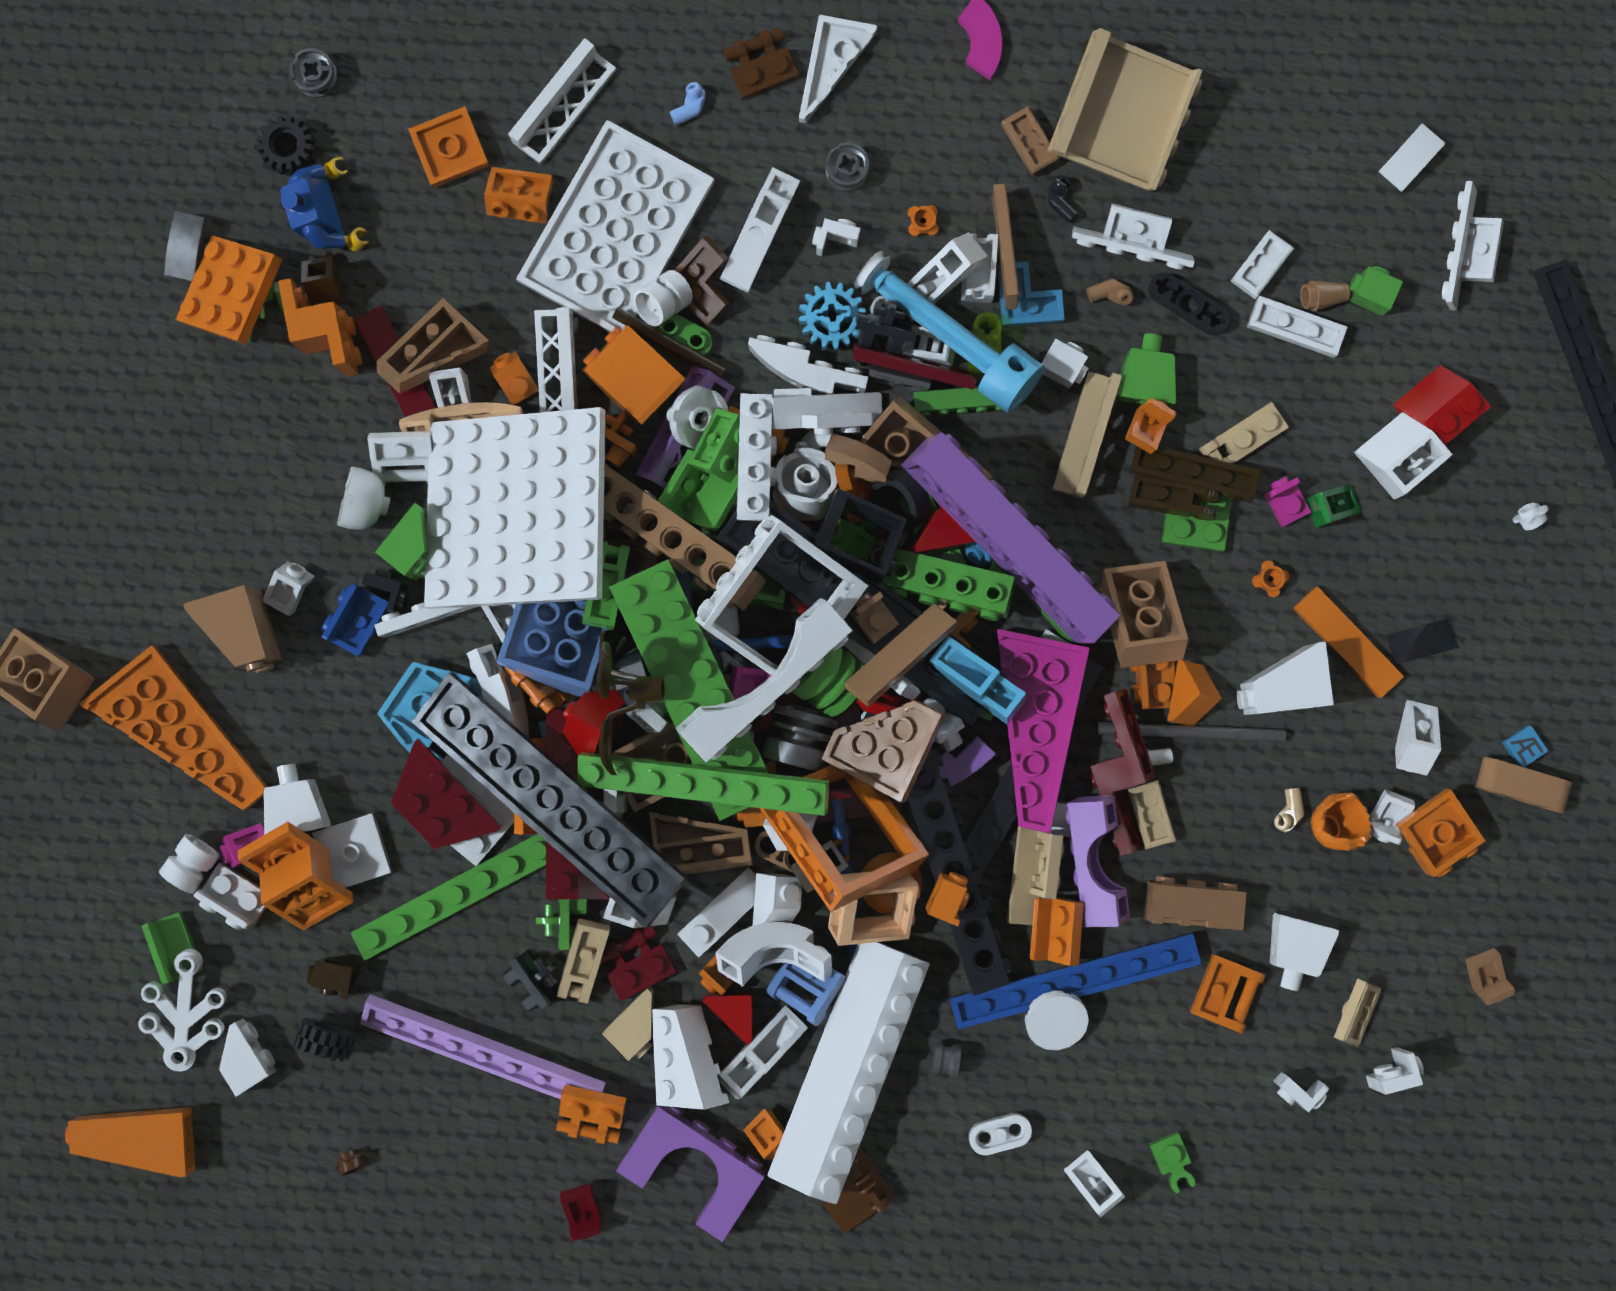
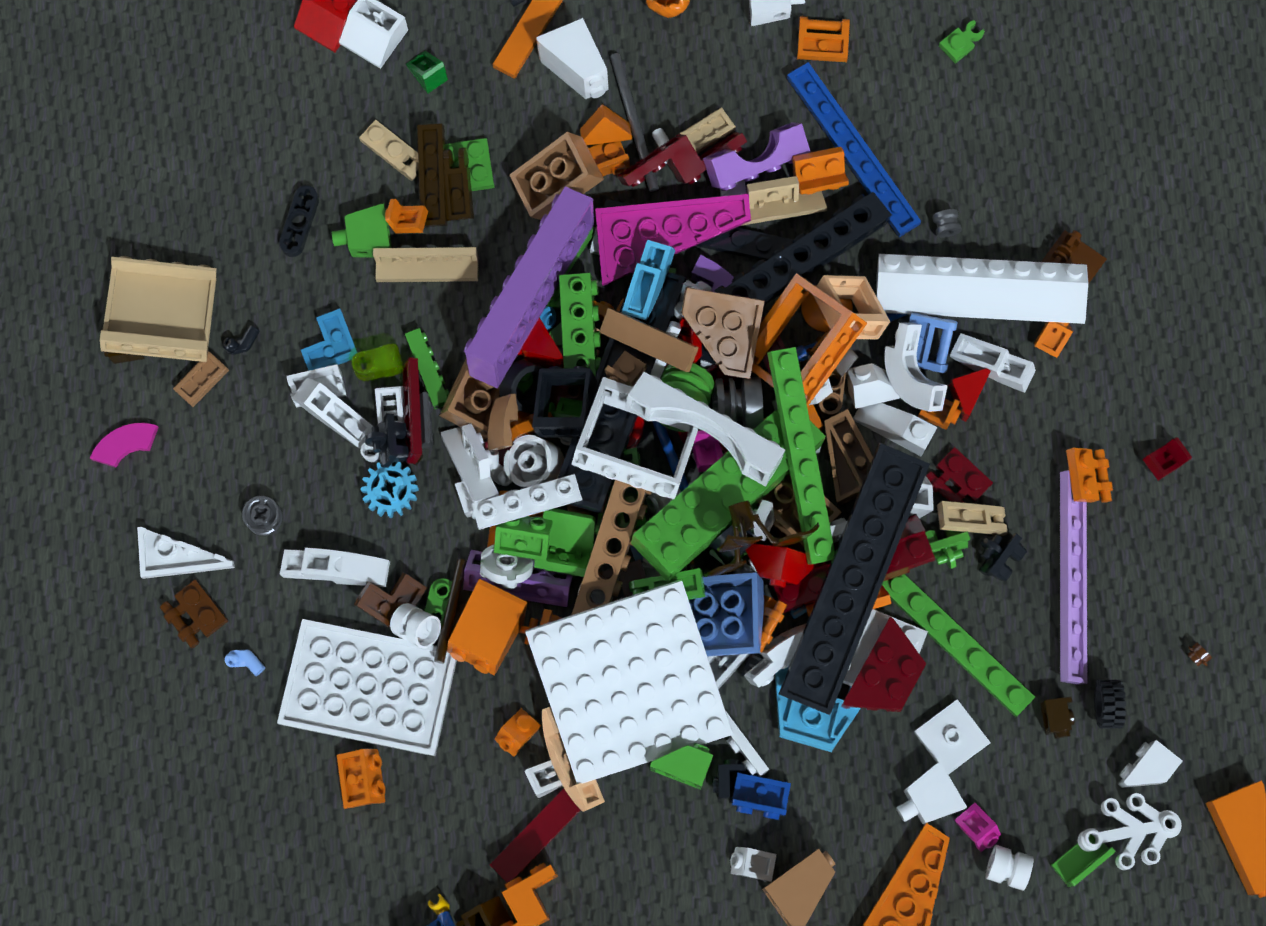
camera: 110 degrees left, 10 degrees down
(232, 897) = (1023, 823): white bracket -> none
(295, 876) = (988, 771): orange bracket -> none
(362, 500) = (660, 822): white cylinder -> none
(400, 450) = (608, 802): white plate -> none
(434, 343) = (513, 804): medium nougat wedge -> none
(448, 147) = (337, 851): orange plate -> none
(553, 94) = (268, 776): white fence -> none
(566, 359) = (492, 689): white fence -> none
(633, 1027) = (1007, 465): tan slope -> none
(683, 1059) = (1021, 415): white wedge -> none
(736, 1174) = (1080, 413): medium lavender arch -> none
(793, 366) = (438, 505): white slope -> none
(841, 232) = (317, 502): white bracket -> none
(926, 212) = (283, 439): orange plate -> none
(948, 897) = (824, 249): orange brick -> none
(1000, 1137) = (990, 168): white plate -> none
(1005, 247) = (297, 365): medium nougat tile -> none
(1007, 375) = (401, 331): medium azure piece -> none
(1056, 1020) = (888, 152): white tile -> none
(1065, 363) = (375, 298): white brick -> none
(1094, 1183) = (1000, 88): white slope -> none
(1112, 290) = (304, 281): medium nougat arm -> none
(1135, 233) = (254, 275): white bracket -> none
(1195, 904) = (765, 80): medium nougat wedge -> none
(1262, 264) = (252, 175): white plate -> none
(1279, 578) = (497, 92): orange plate -> none
(1287, 501) = (433, 104): dark pink bracket -> none
(1292, 812) = (670, 32): tan arm -> none
(1297, 326) = (294, 136): white plate -> none
(1323, 294) = (263, 124): medium nougat cone -> none
(1374, 289) = (249, 87): bright green brick -> none
(1411, 157) = (135, 90): white slope -> none
(1475, 247) = (195, 24): white bracket -> none

